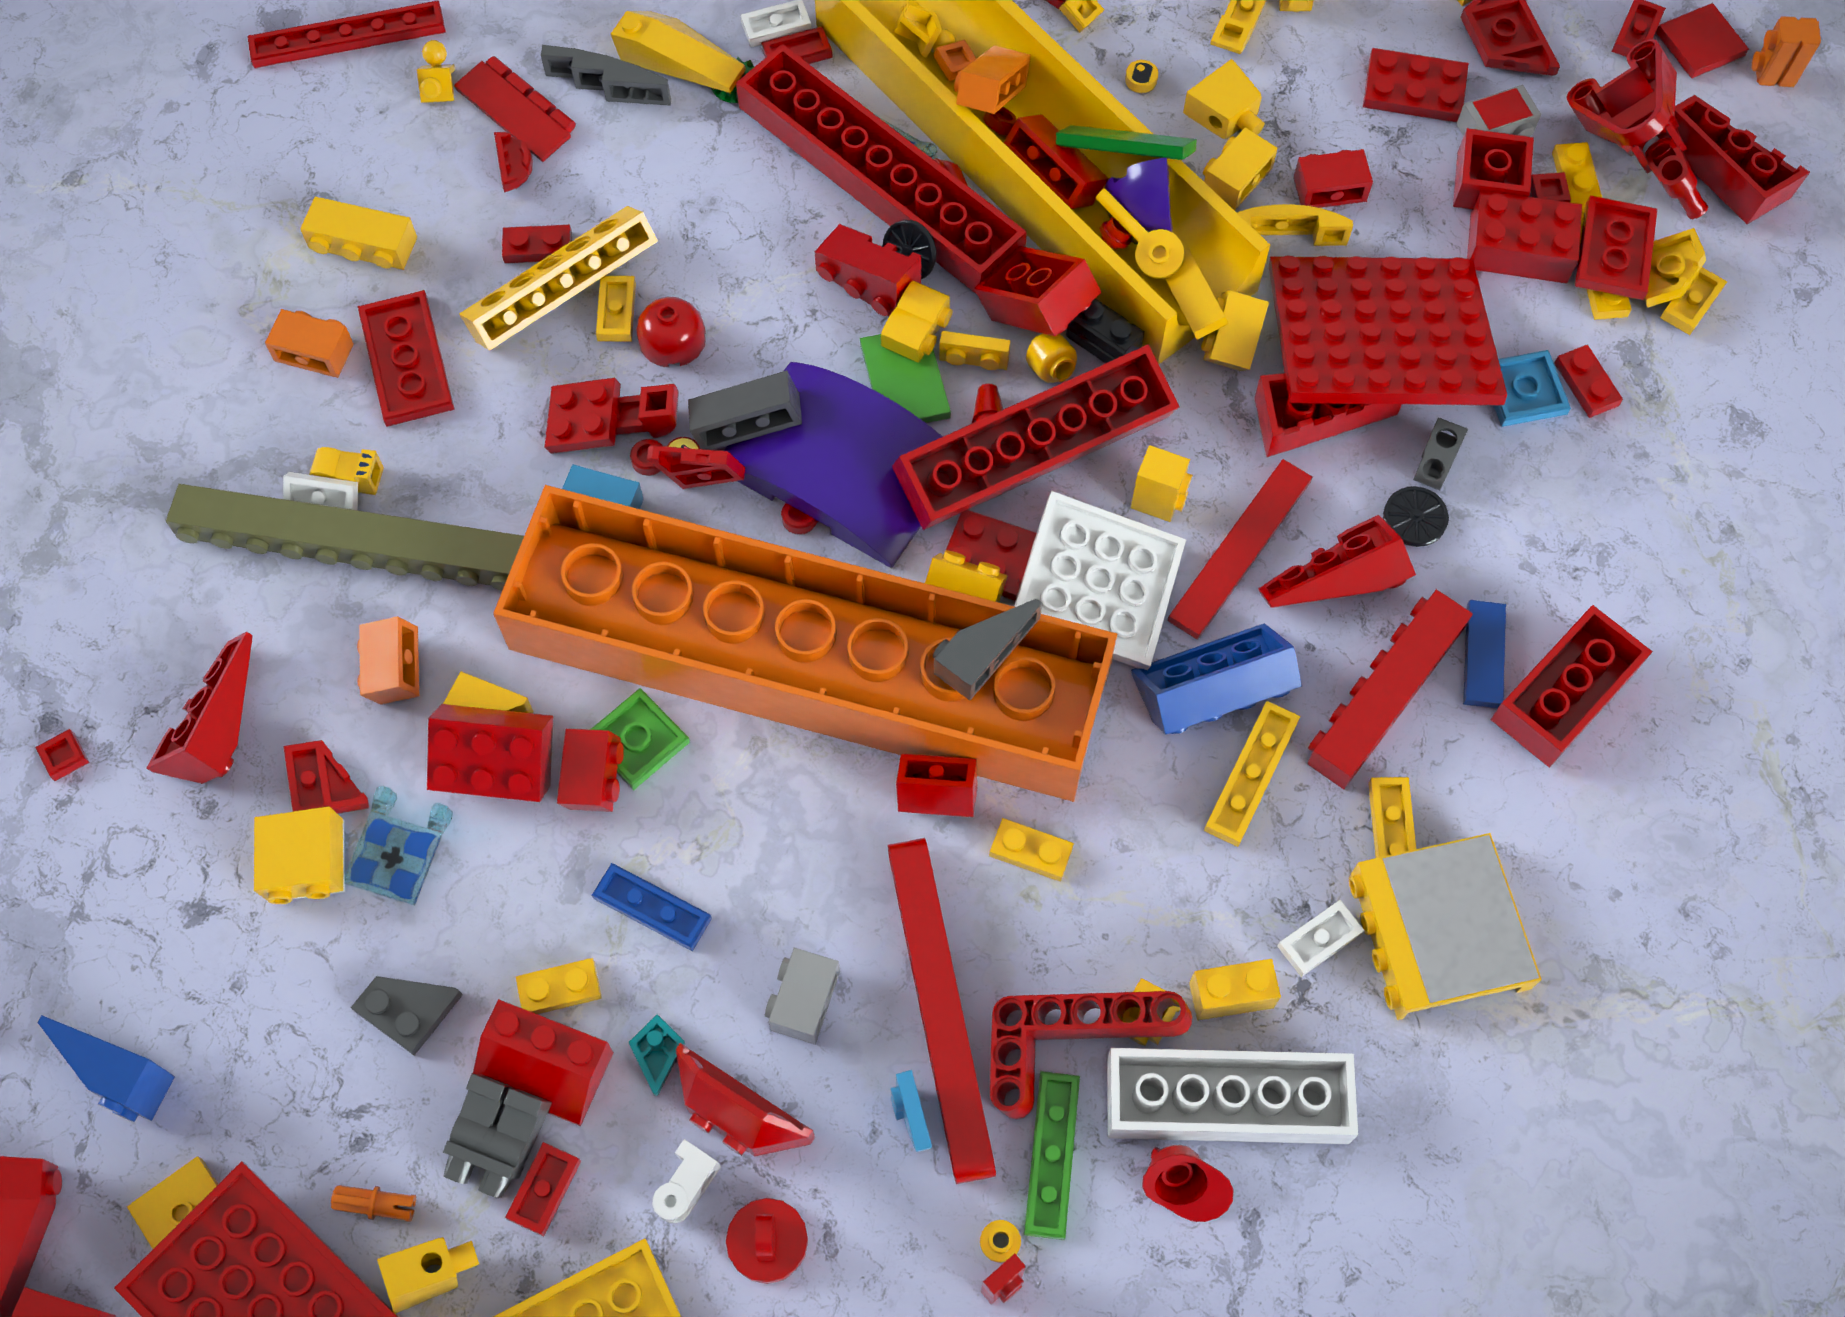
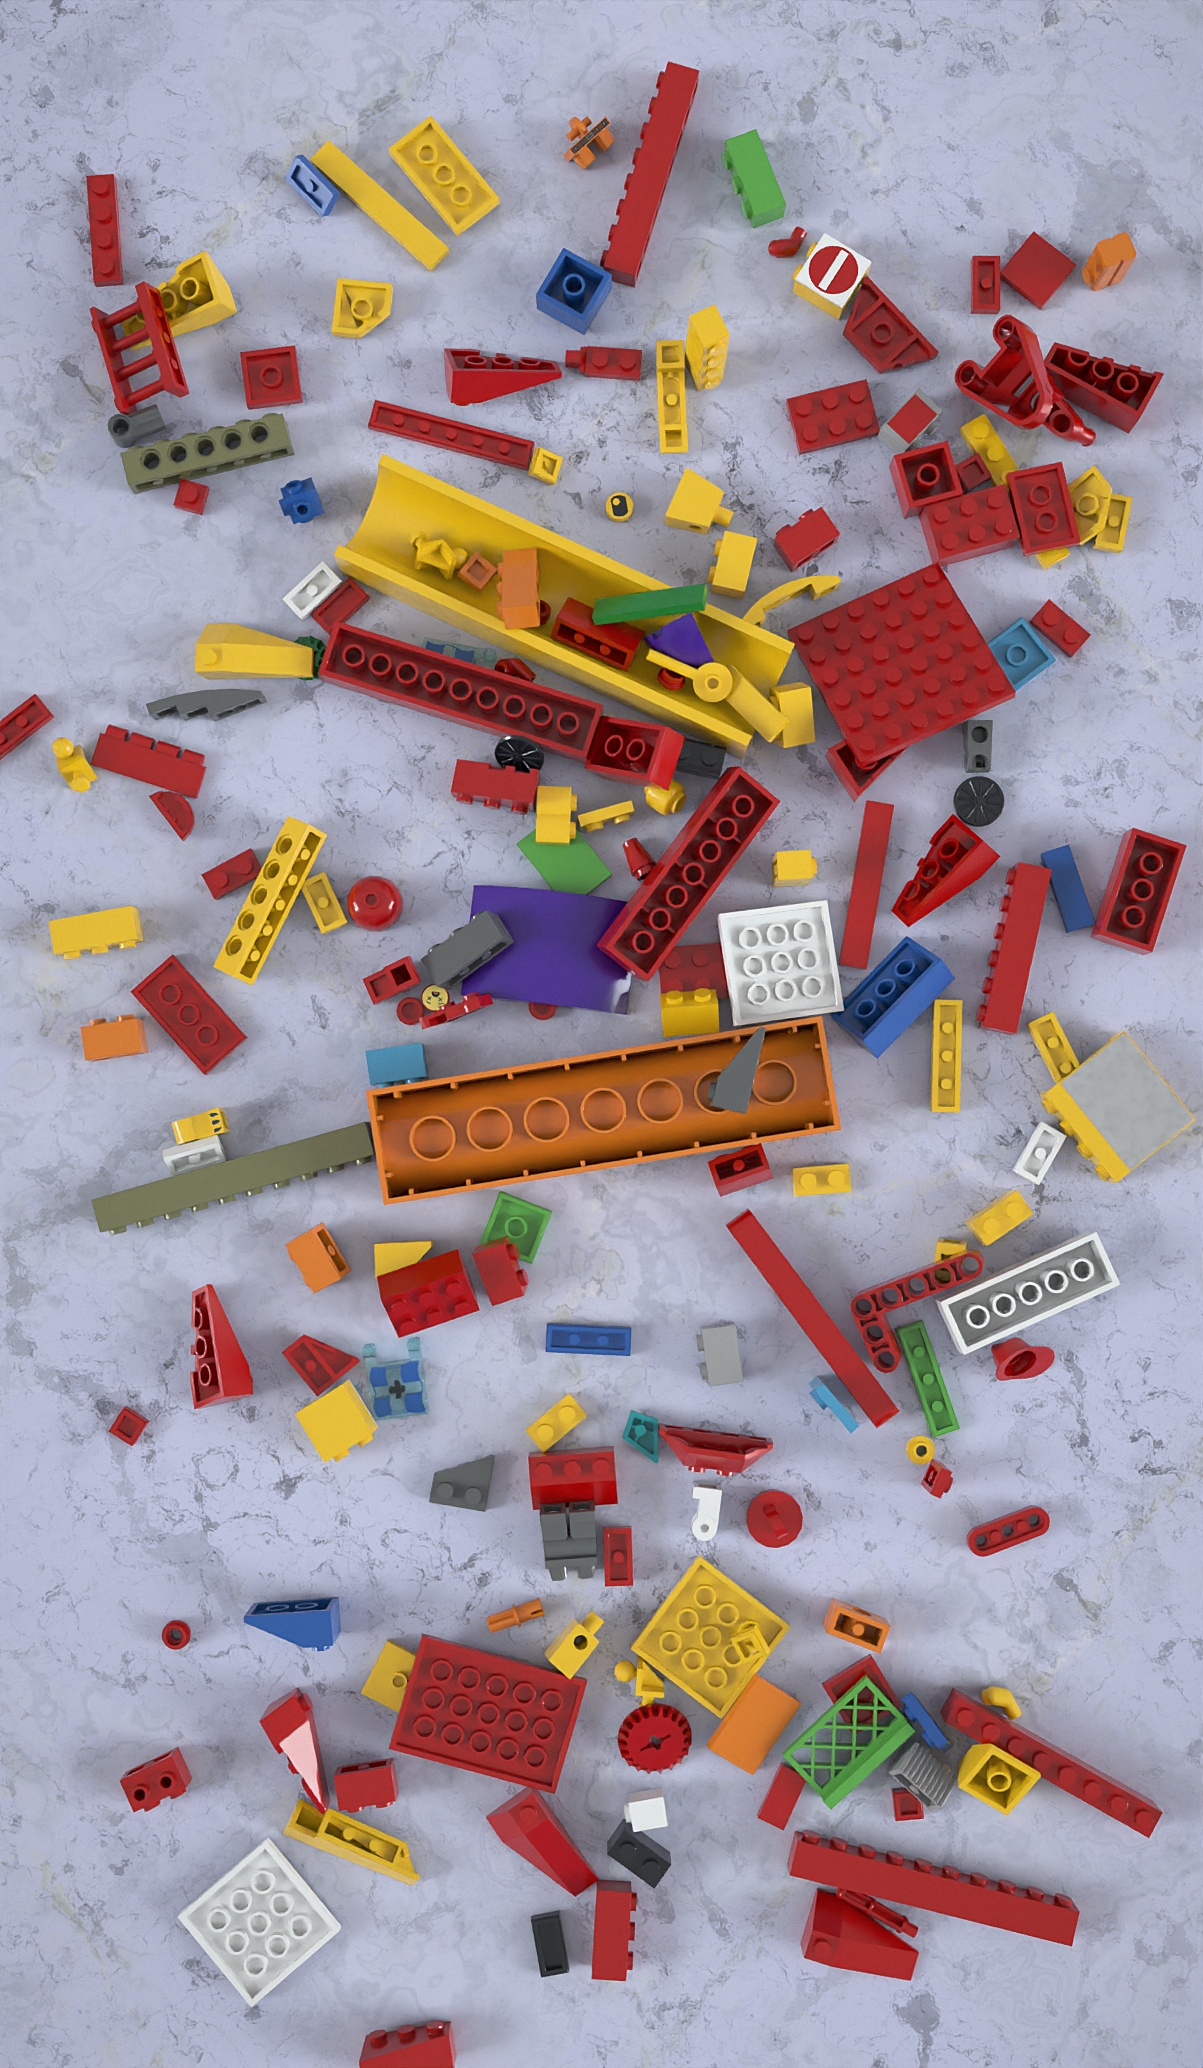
camera: 25 degrees left, 20 degrees up
(582, 415) = (347, 1003): red plate -> none

